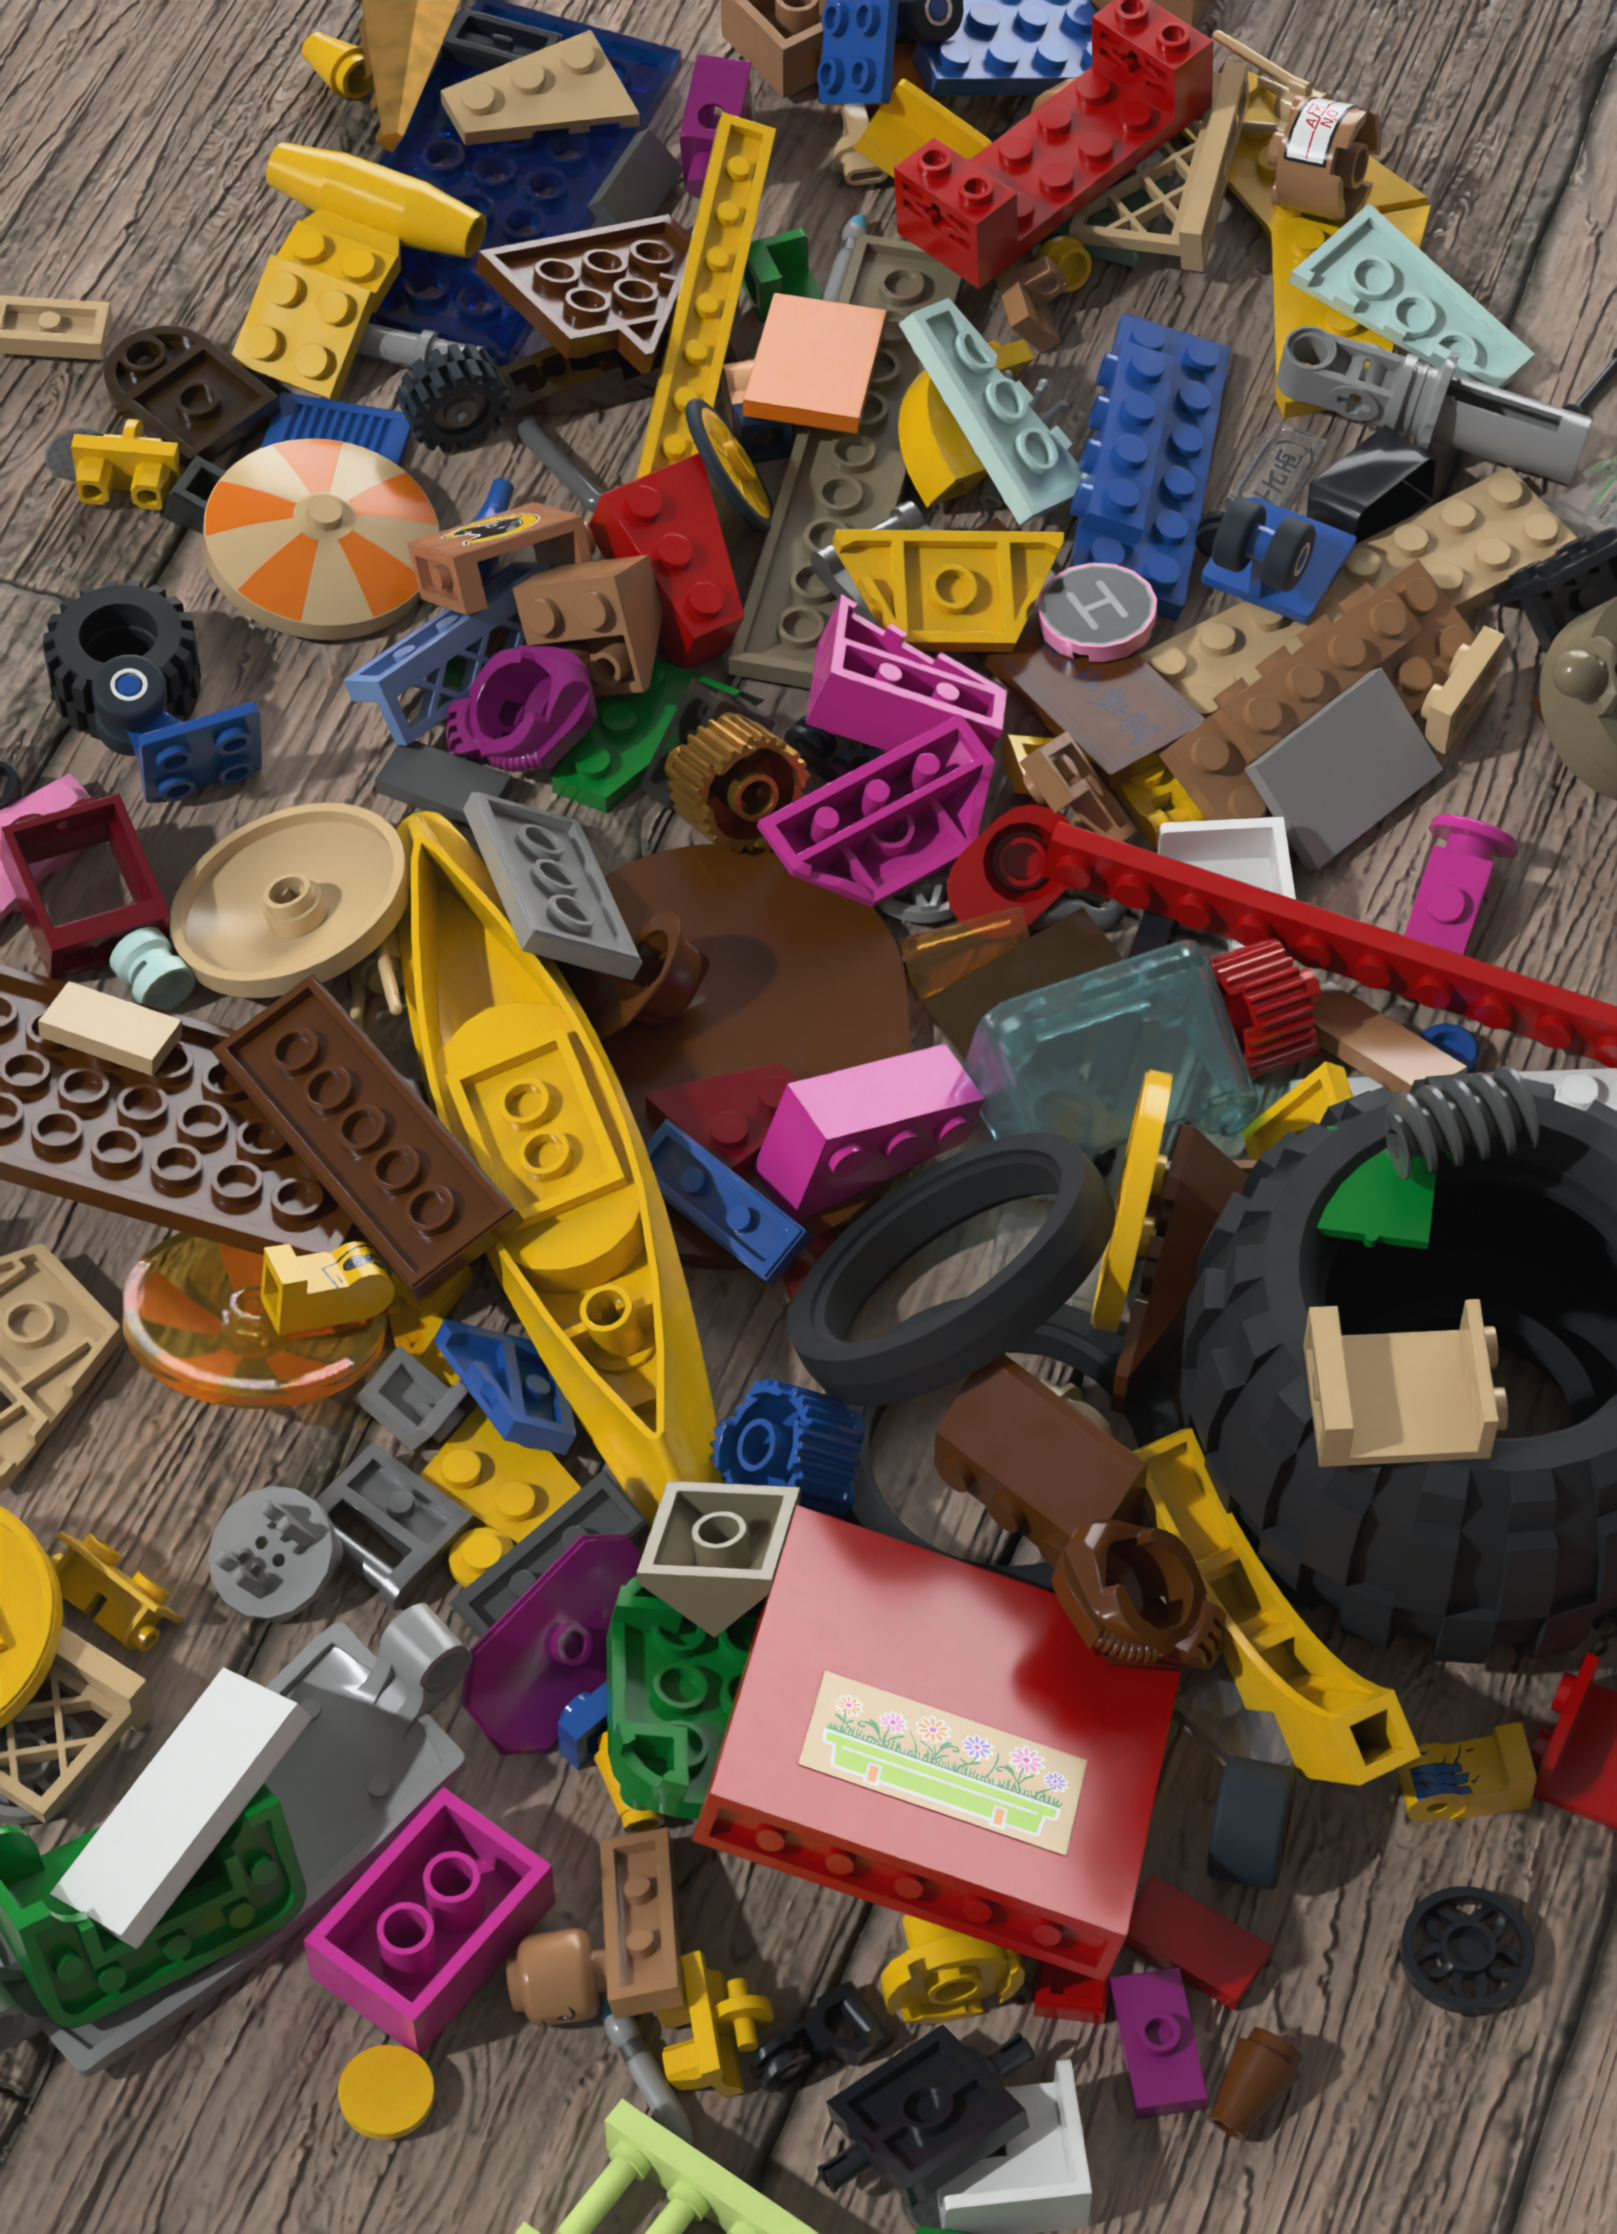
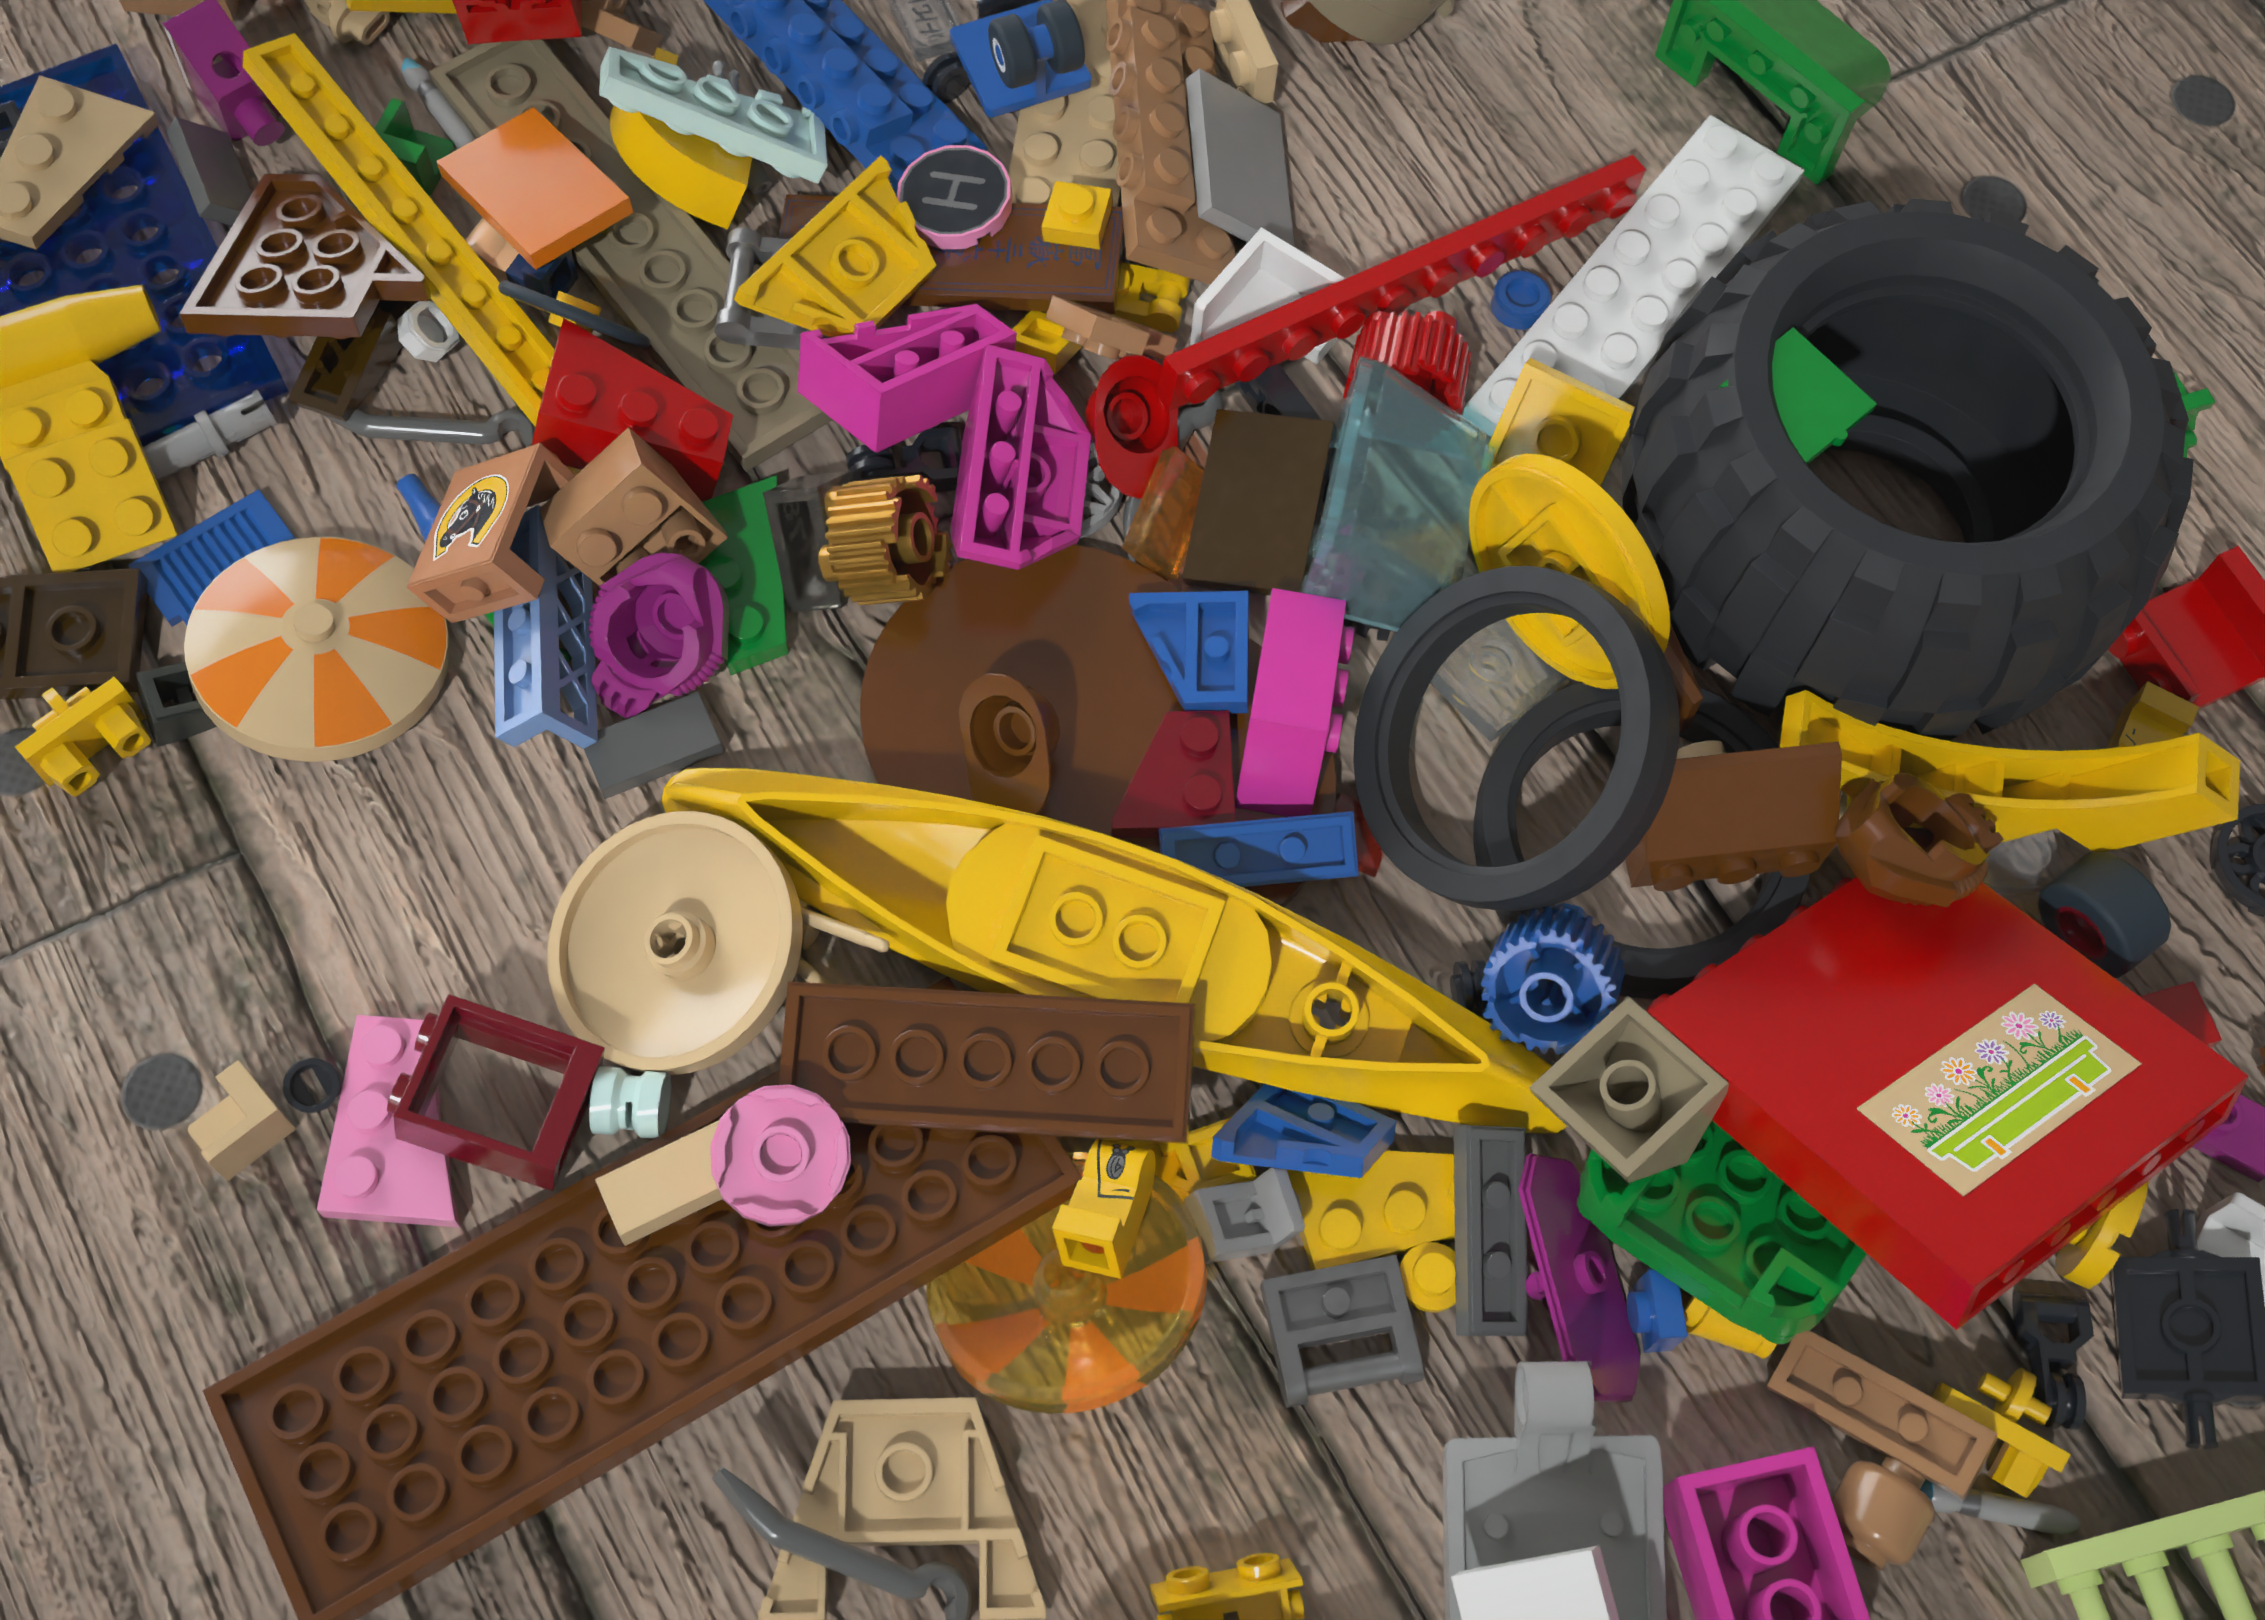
camera: 55 degrees left, 10 degrees up
(114, 624) = (262, 849): black tyre -> none
(171, 753) = (368, 920): blue plate -> none
(179, 1065) = (780, 1155): none -> bright pink tile
(250, 1575) = (1305, 1406): light grey plate -> none
(453, 397) = (290, 446): black wheel -> none
(551, 886) = (862, 741): light grey tile -> none
(633, 401) = (426, 332): none -> white tile
(862, 1031) = (1199, 645): none -> blue wing
(1161, 695) = (1077, 215): none -> yellow plate
(1376, 1042) = (1519, 325): medium nougat tile -> none
(1403, 1392) = (2030, 513): tan panel -> none
(1457, 881) = (1400, 179): dark pink piece -> none
(1459, 1117) = (1826, 297): dark grey piece -> none

